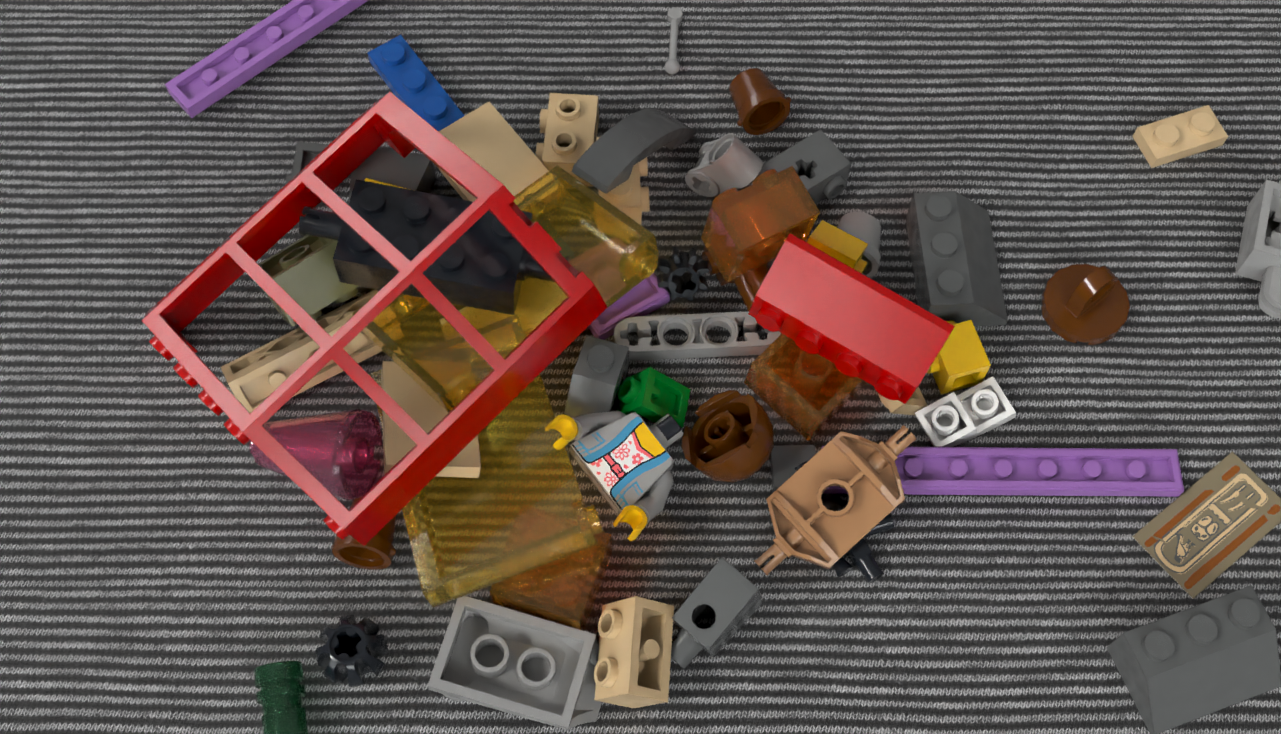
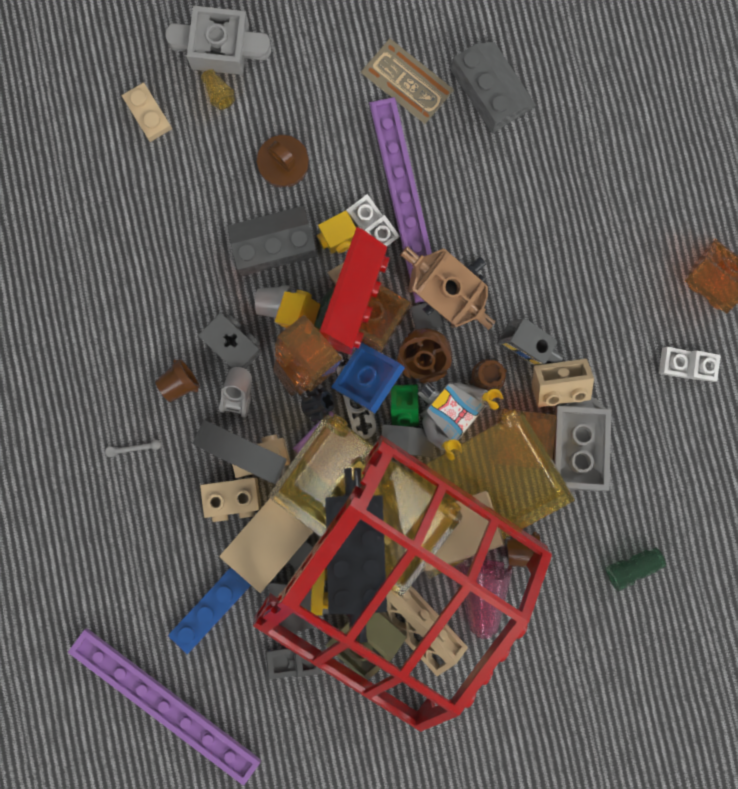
camera: 105 degrees left, 20 degrees up
(335, 654) = (586, 541): black piece -> none
(674, 542) = (488, 375): none -> reddish brown piece
(706, 342) = (368, 377): none -> blue tile
(1207, 231) = (219, 92): none -> clear yellow cone

